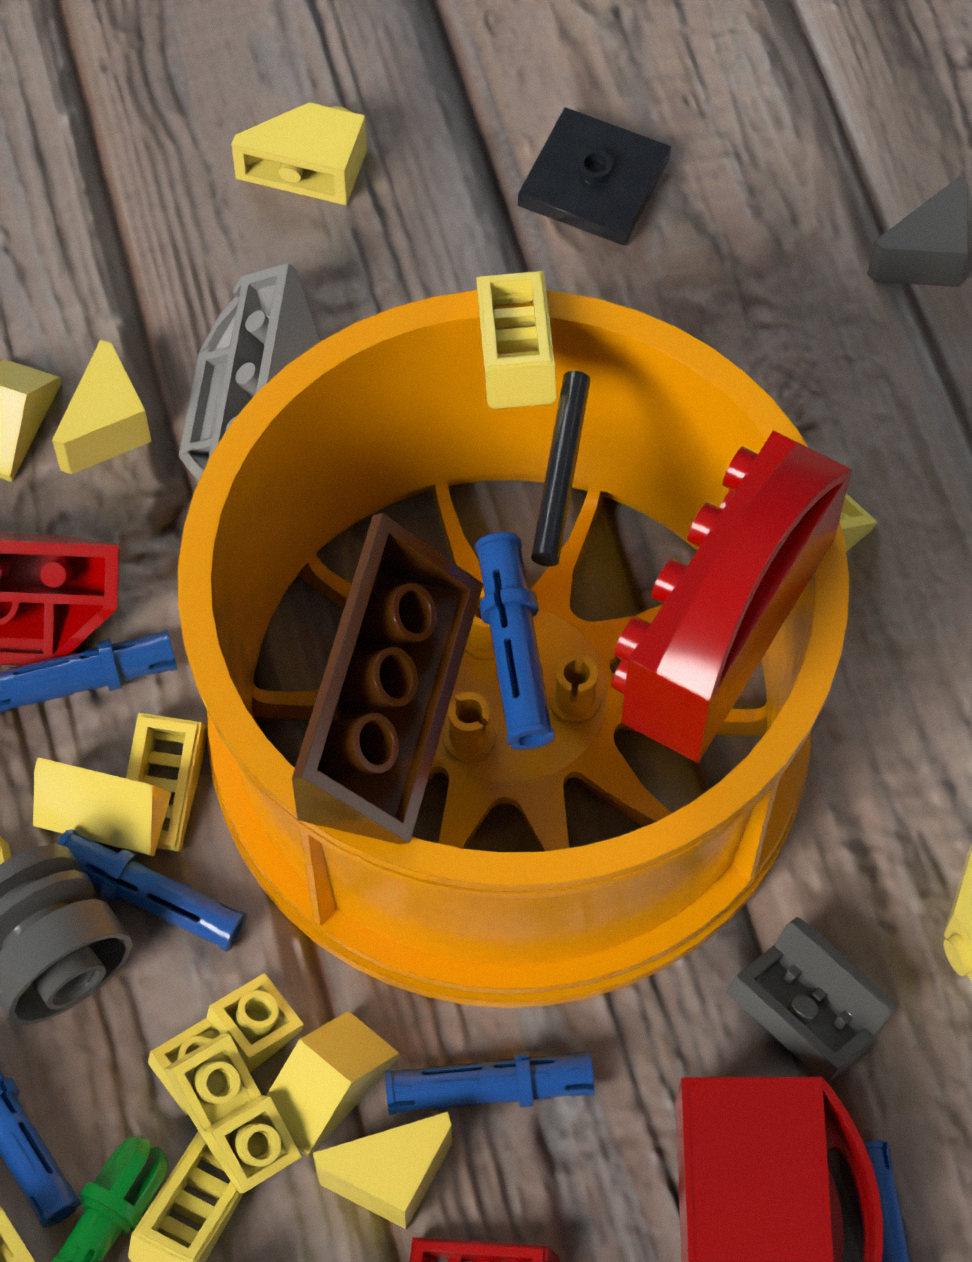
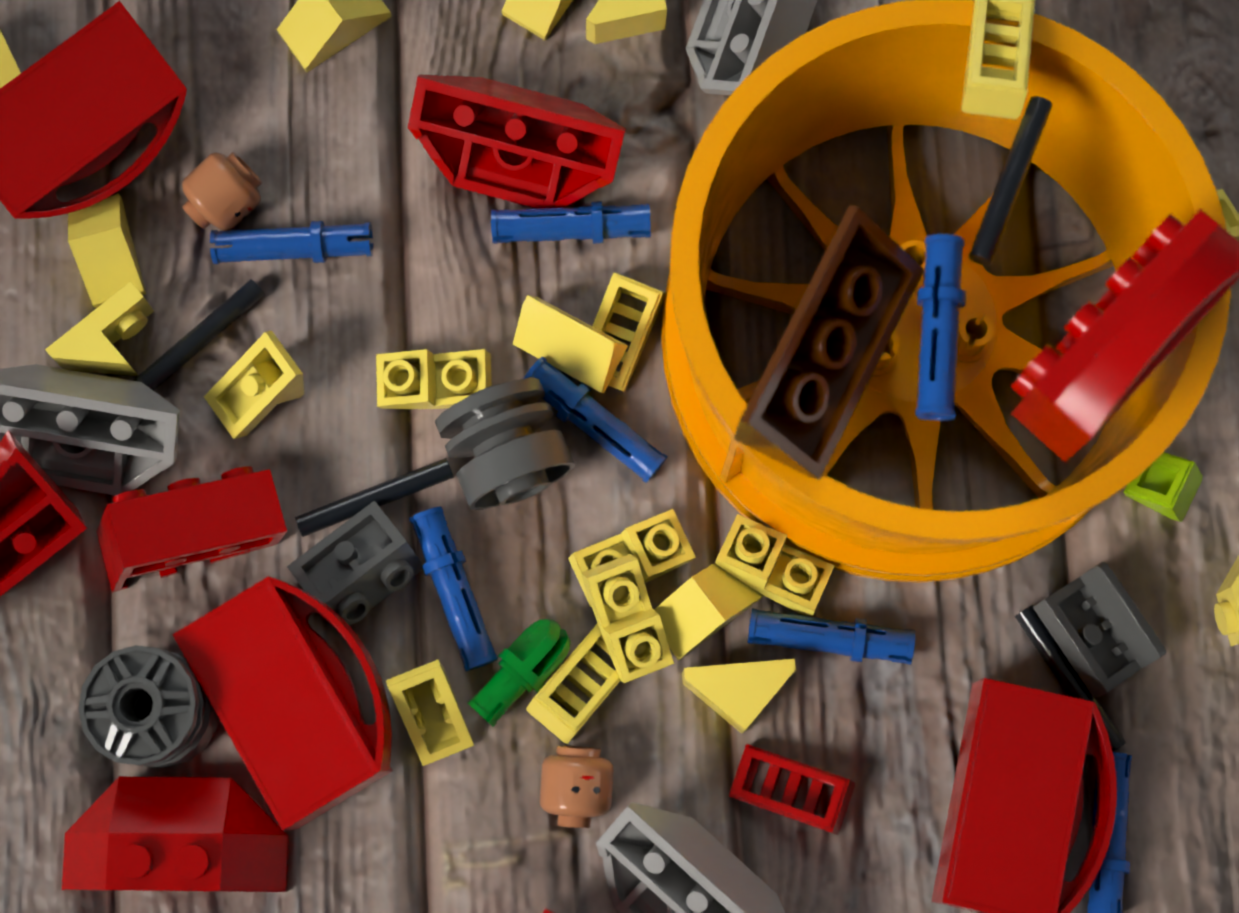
camera: 10 degrees right, 15 degrees up
(407, 1019) = (772, 568): none -> light yellow slope
(774, 1053) = (1062, 667): none -> black bar
(850, 819) = (1167, 486): none -> lime slope

